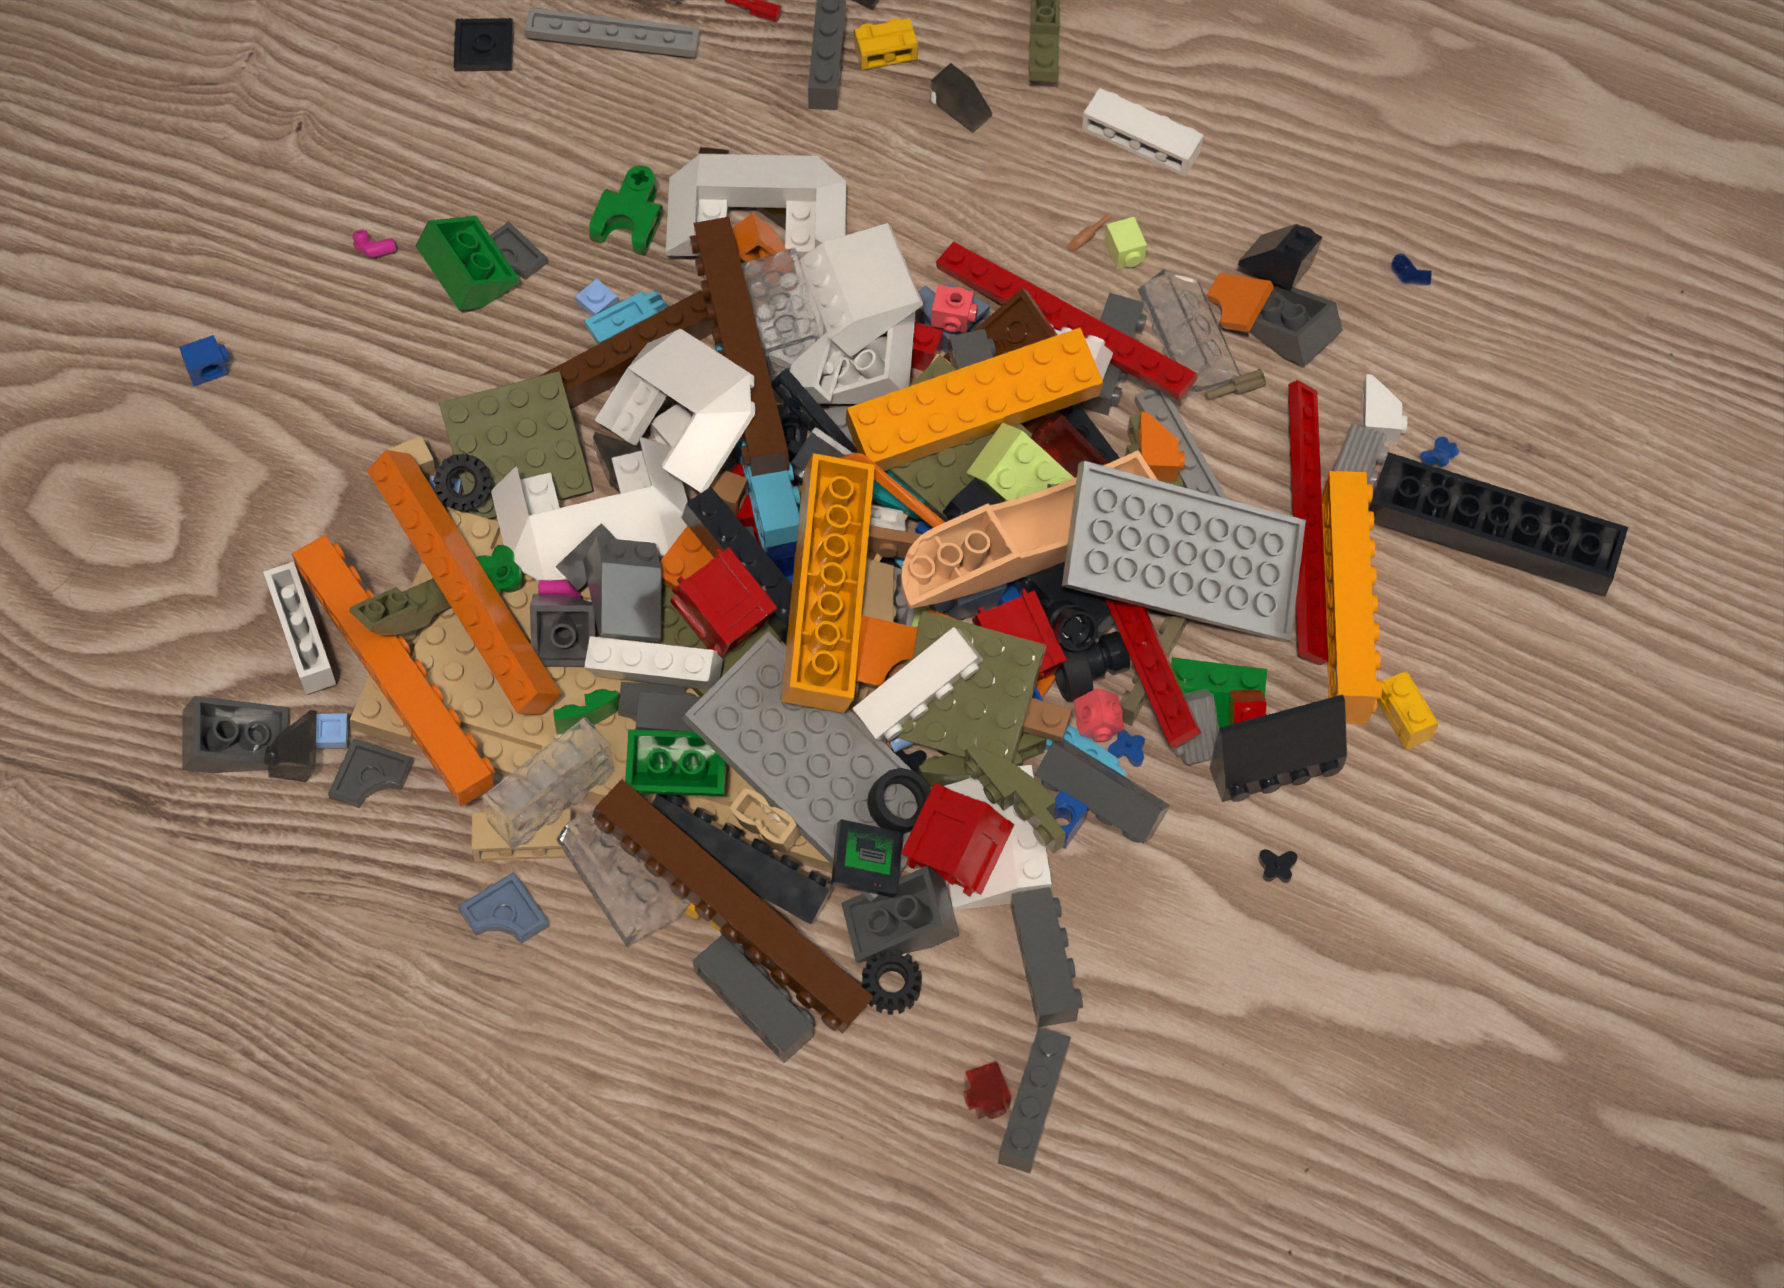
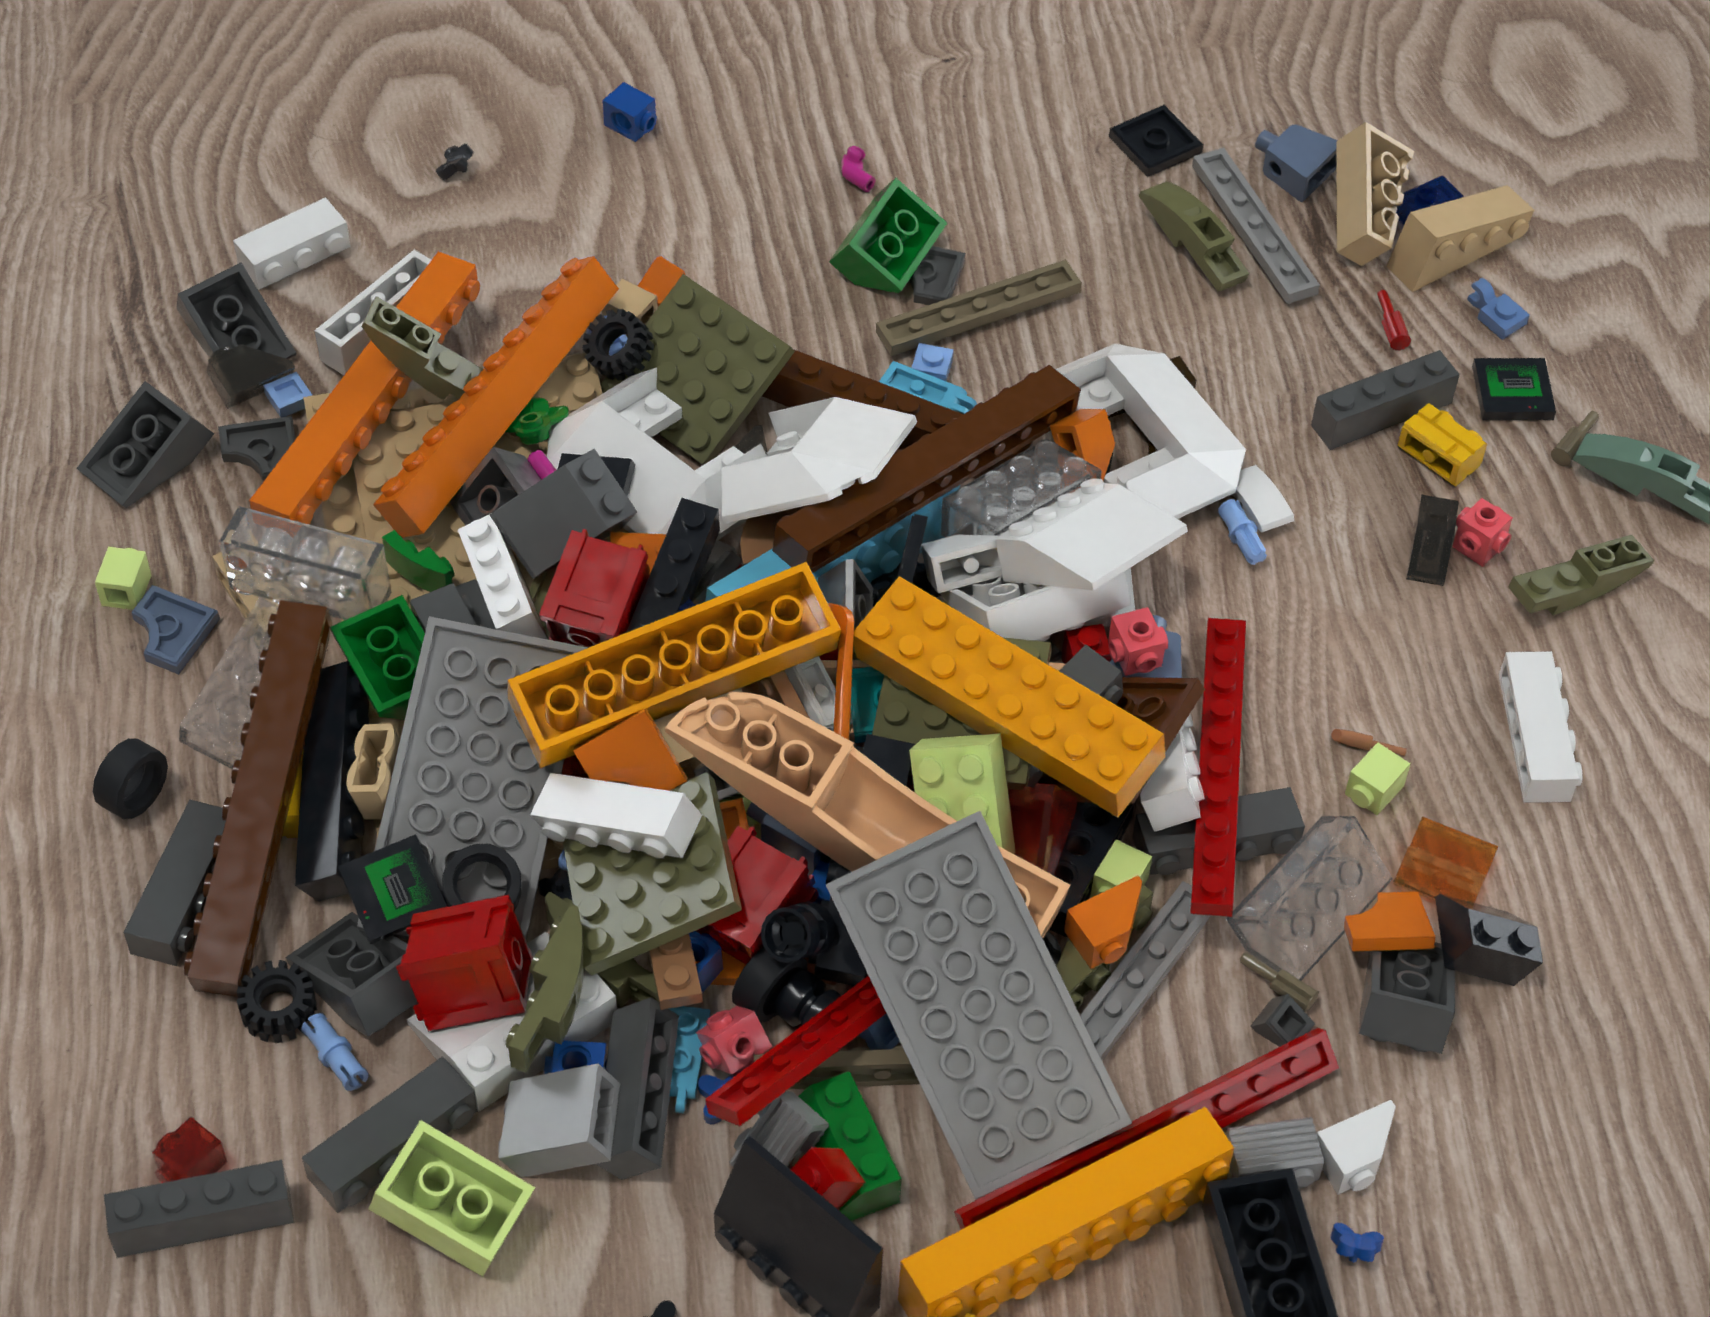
camera: 60 degrees right, 10 degrees down
(164, 504) = (456, 161): none -> black piece
(173, 657) = (292, 243): none -> white brick
(317, 855) = (144, 446): none -> dark grey slope
(394, 427) = (661, 278): none -> orange slope
(440, 921) = (123, 577): none -> yellowish green brick
(568, 242) = (978, 307): none -> dark tan plate
(596, 67) = (1199, 230): none -> olive slope
(629, 209) = (1054, 334): green piece -> none
(646, 992) = (130, 778): none -> black tyre
(863, 174) = (1262, 500): none -> white slope
(878, 200) = (1242, 531): none -> light blue axle
(955, 963) = (335, 1052): none -> light blue pin
(976, 63) = (1482, 531): none -> coral brick
(1103, 847) = (559, 1120): none -> light grey brick
(1112, 424) = (1120, 865): none -> yellowish green brick
(1126, 937) = (451, 1198): none -> yellowish green brick
(1208, 246) = (1445, 862): none -> clear orange slope
(1264, 403) = (1282, 1021): none -> dark grey slope
(1408, 273) = (1583, 1090): clear blue arm -> none

